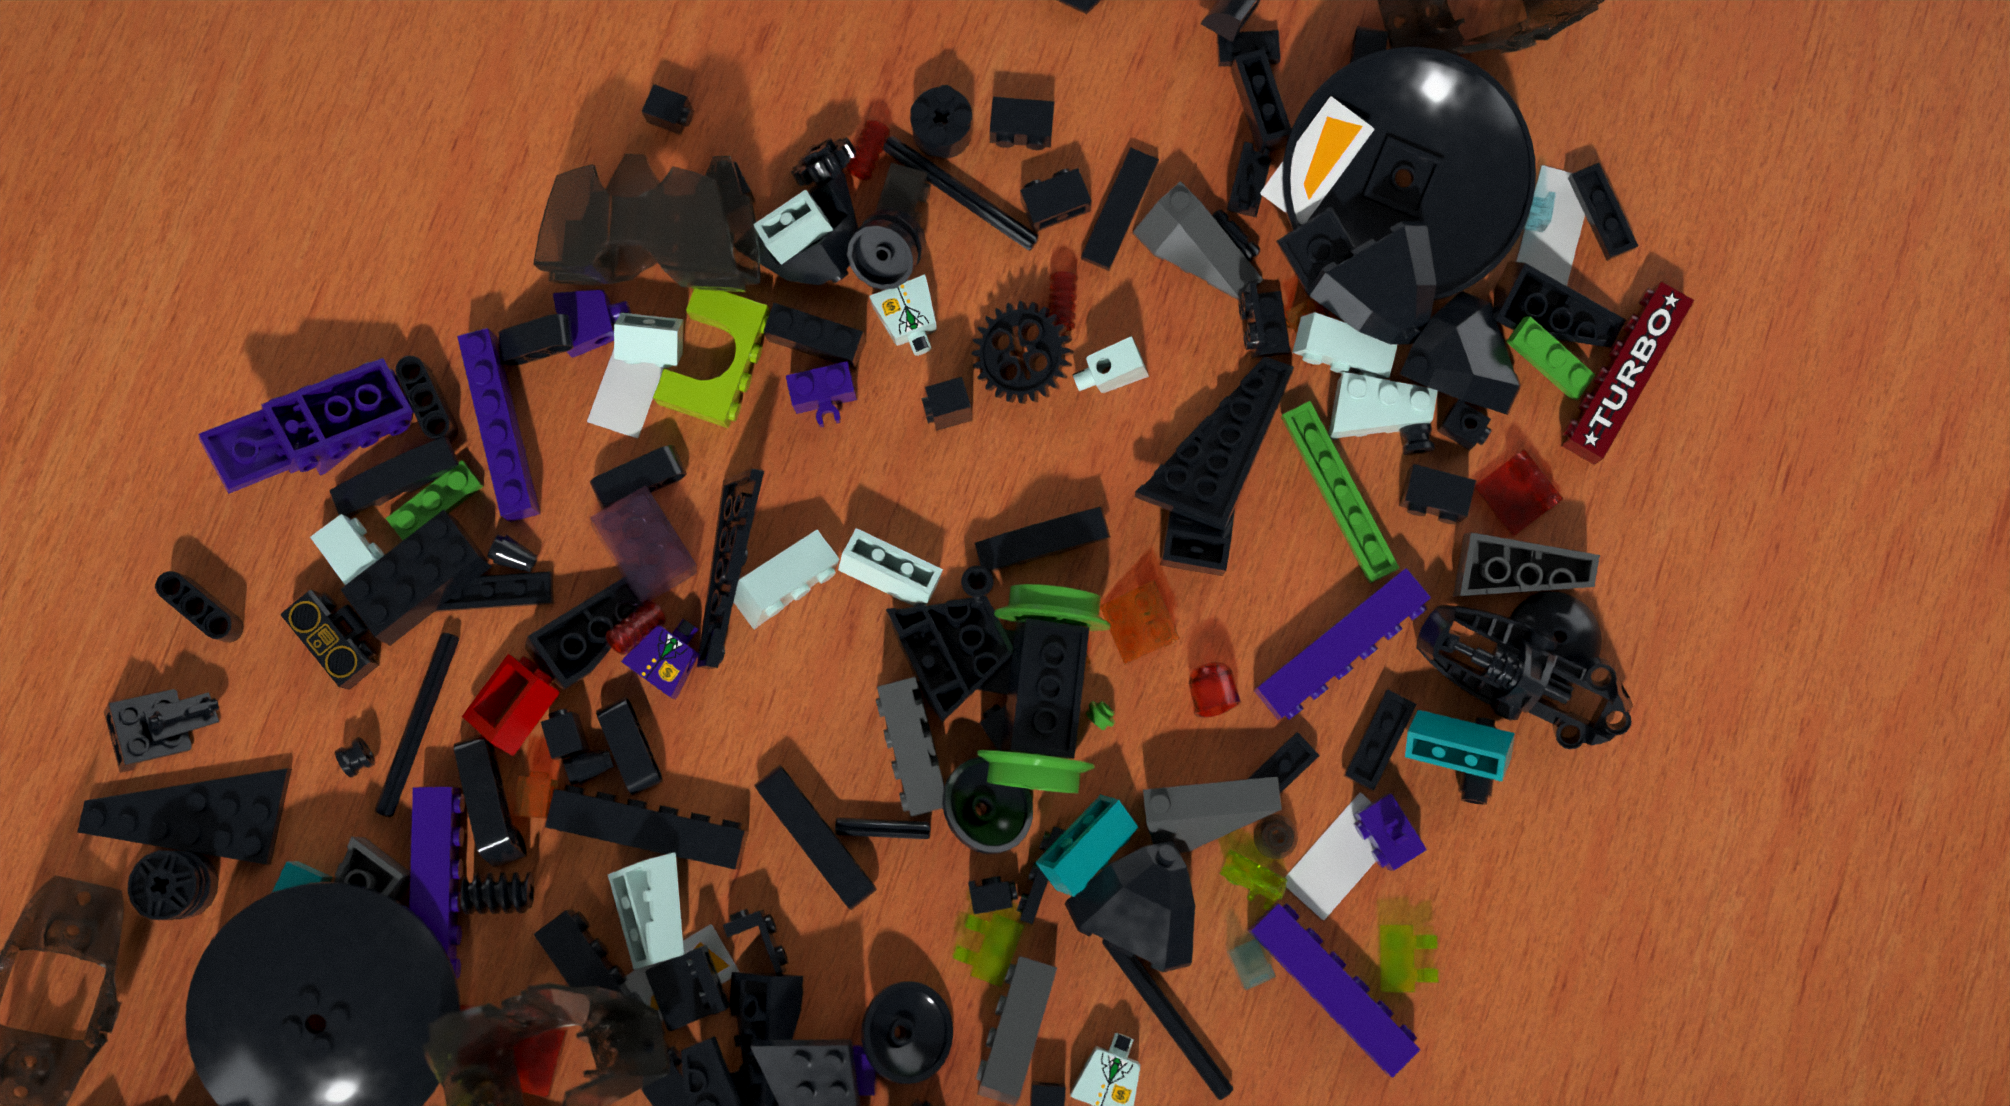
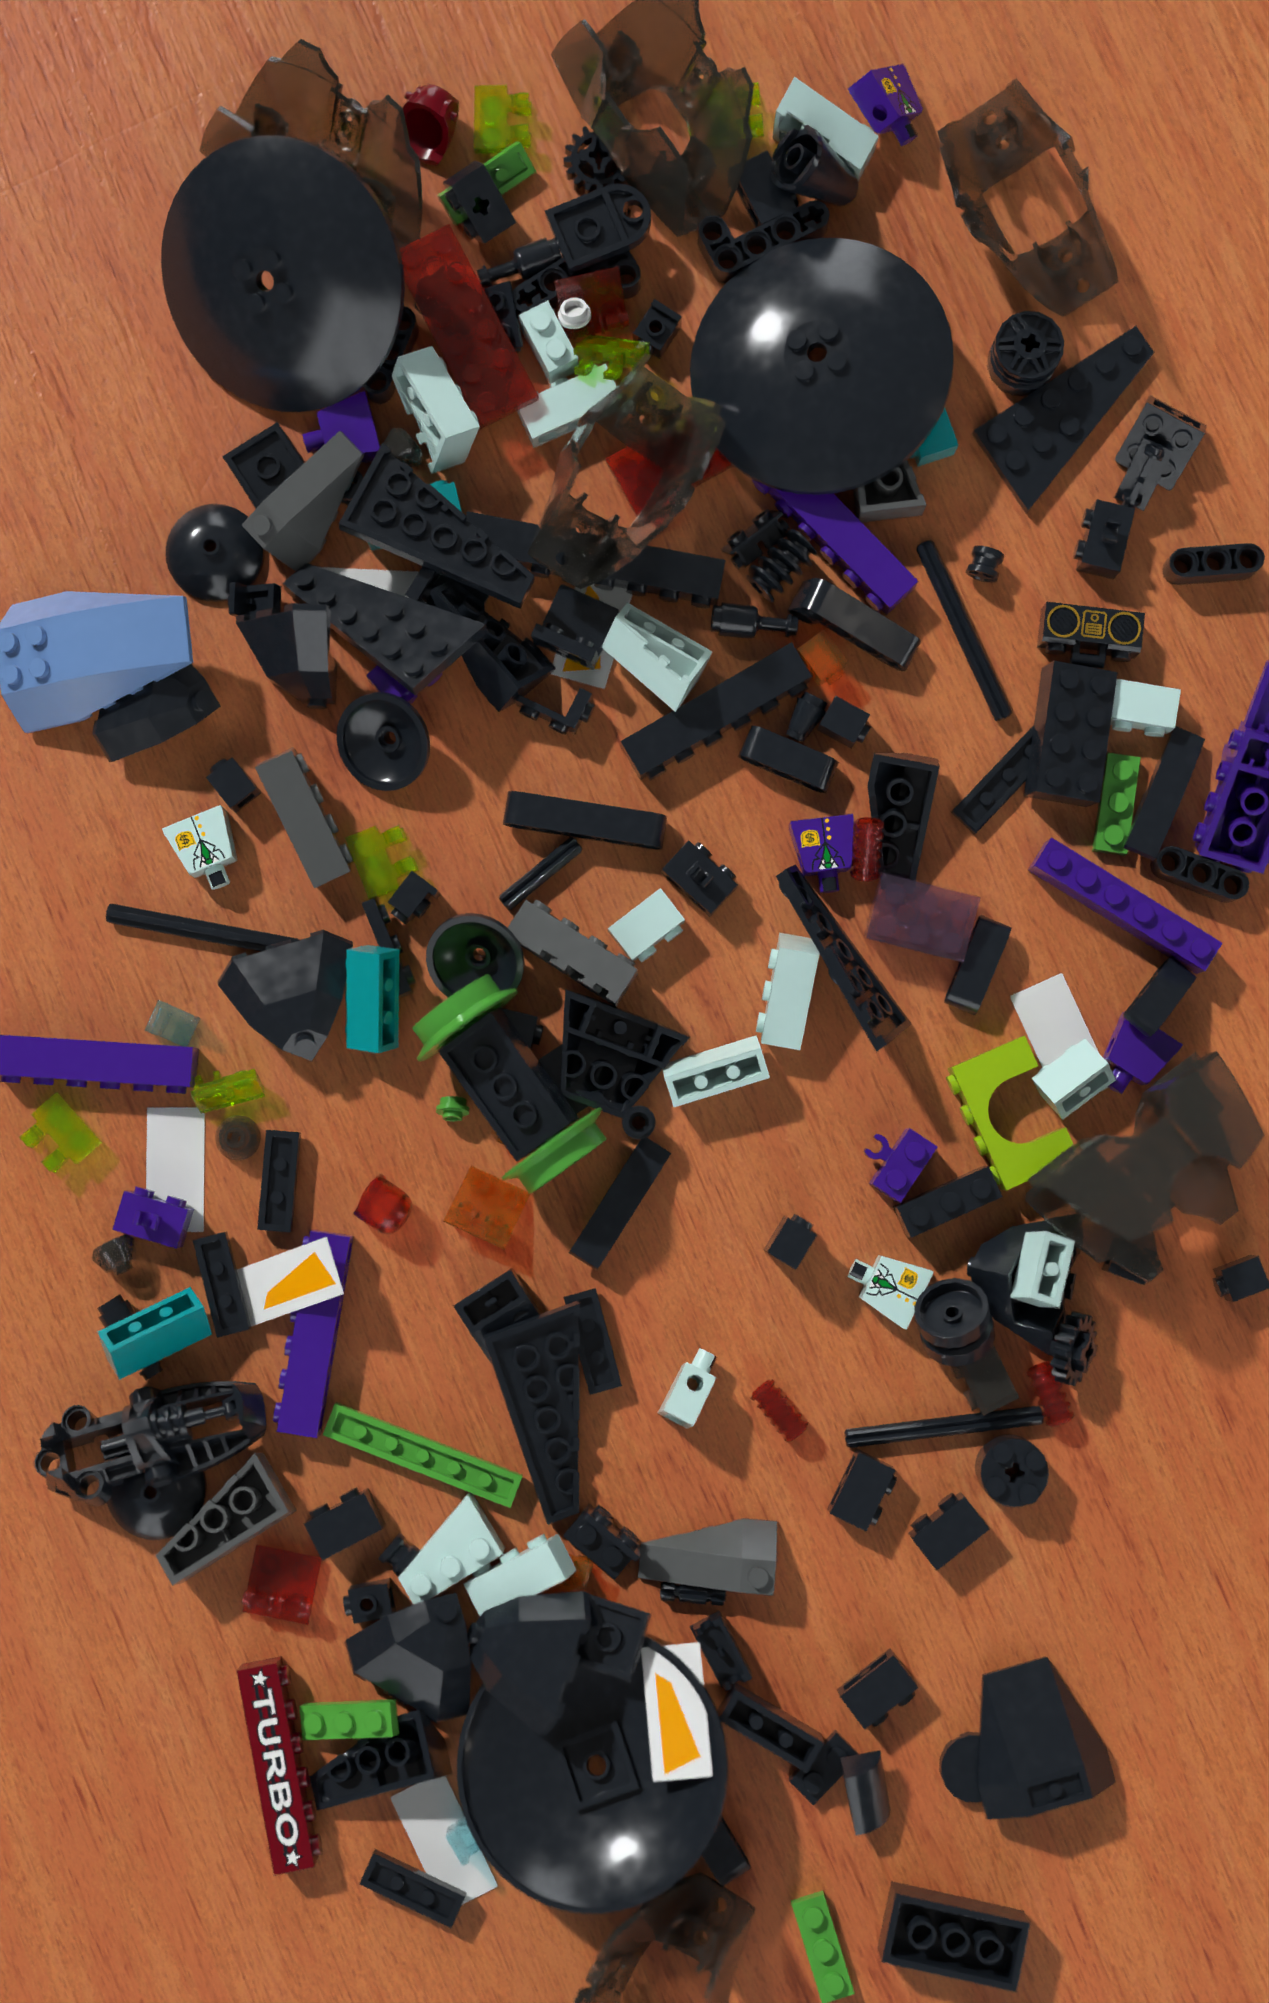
camera: 135 degrees right, 5 degrees up
(255, 696) = (1104, 539): none -> black brick
(481, 932) = (744, 543): none -> black hinge
(512, 554) = (1017, 819): black cone -> none
(523, 713) = (886, 709): red window -> none
(563, 876) = (745, 621): none -> black piece
(772, 718) = (699, 877): none -> black brick
(842, 717) = (646, 926): none -> light aqua brick
(996, 361) = (756, 1363): black gear -> none
(1119, 209) = (804, 1531): black tile -> none
(1153, 452) = (595, 1345): none -> black plate
(1165, 64) = (878, 1689): none -> black brick
(1209, 810) = (305, 1108): dark grey wedge -> none
(1328, 694) = (289, 1281): none -> white sticker
(1439, 830) = (116, 1255): none -> clear smoke cone

